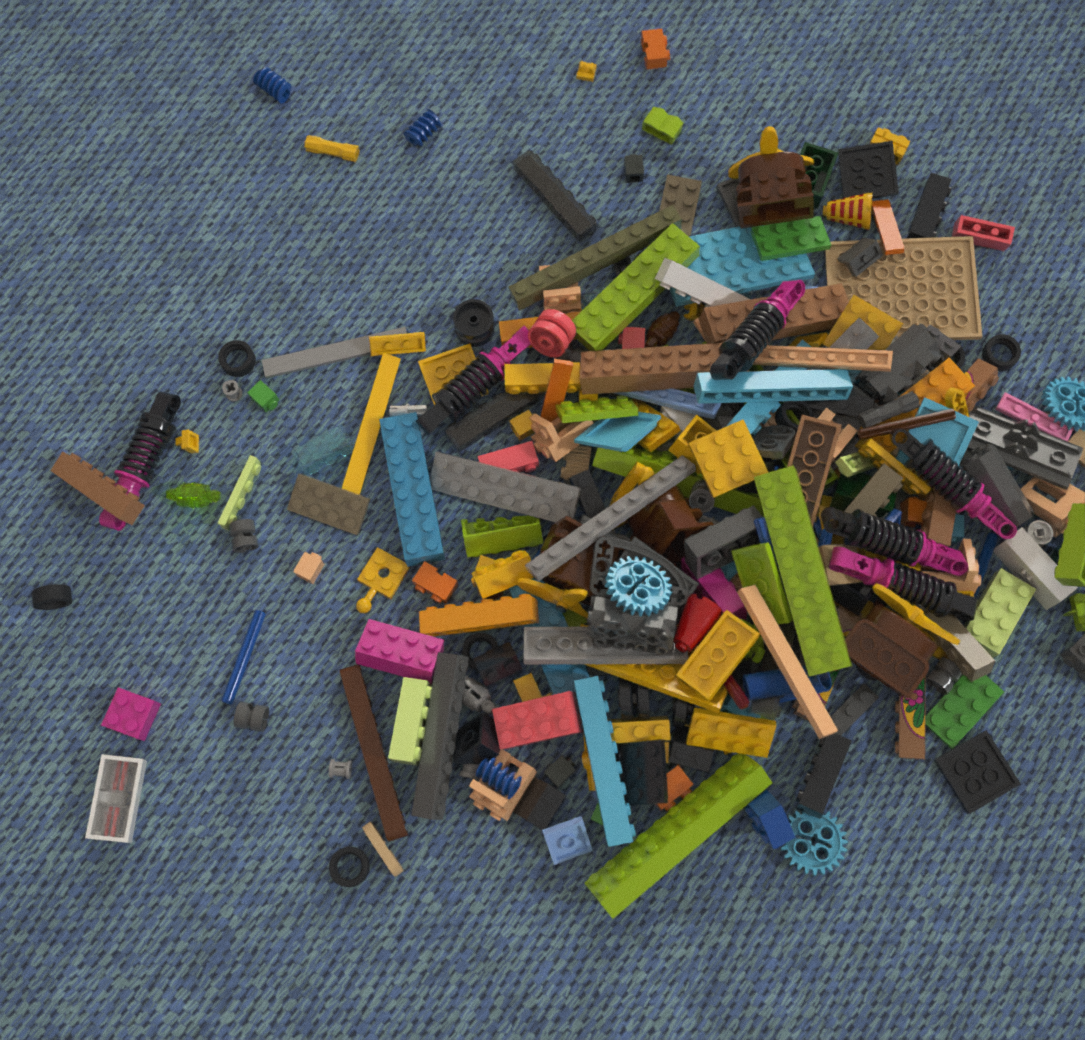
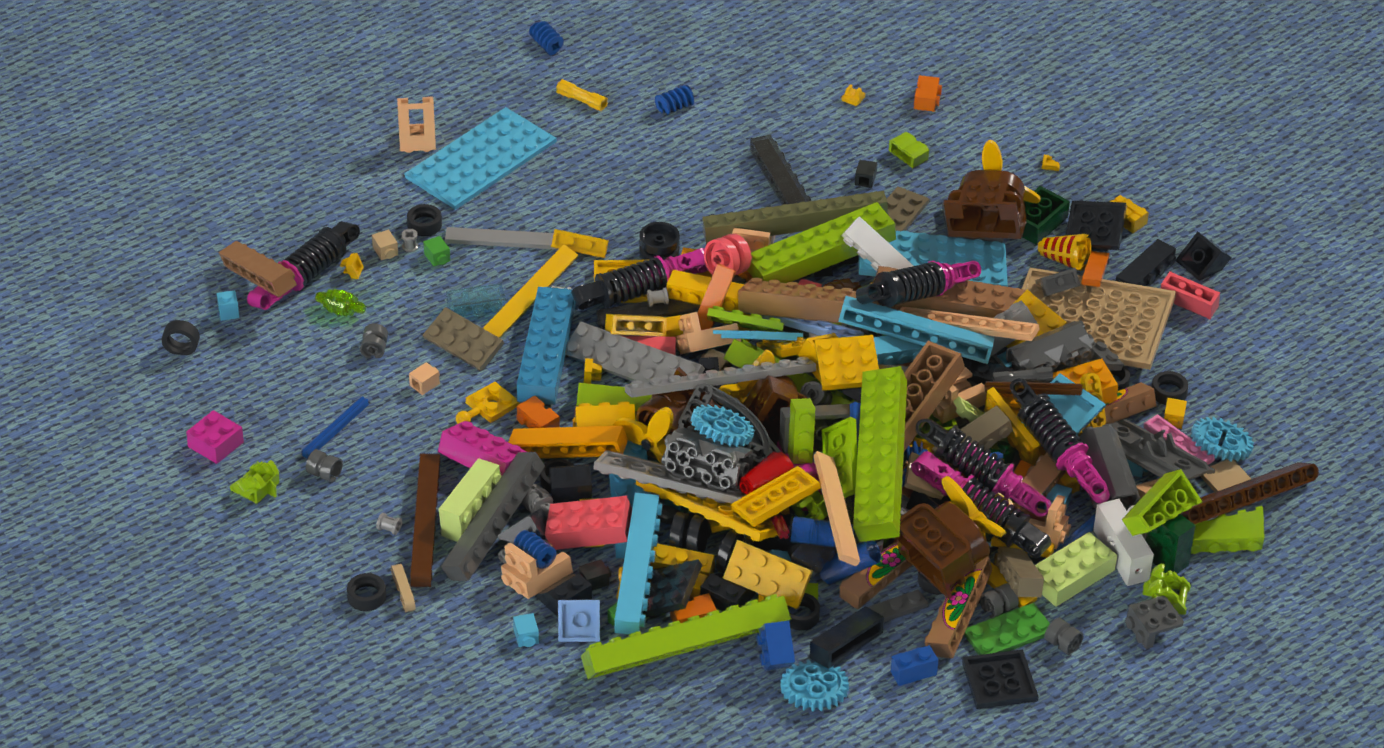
camera: 15 degrees right, 30 degrees down
(83, 534) = (227, 305): none -> medium azure brick
(116, 798) = (175, 489): clear brick -> none
(190, 250) = (416, 136): none -> light nougat brick
(199, 759) = (258, 481): none -> lime piece
(210, 404) = (385, 244): none -> tan brick
(242, 486) = (385, 310): yellowish green plate -> none
(262, 258) = (480, 158): none -> medium azure plate
(465, 506) = (592, 371): none -> yellow tile
(490, 440) = (636, 325): none -> yellow brick
(499, 399) = (657, 297): none -> light grey bush
(520, 866) = (526, 630): none -> medium azure brick
(716, 565) = (801, 431): none -> lime brick
(780, 757) = (809, 621): none -> black tyre
(790, 238) = (995, 253): bright green plate -> none
(794, 101) = (1049, 164): none -> yellow tile
(896, 786) = (914, 665): none -> blue brick
(974, 180) = (1202, 257): none -> black slope
(1018, 384) = (1175, 412): none -> yellow brick
(1020, 702) = (1062, 634): none -> dark grey wheel

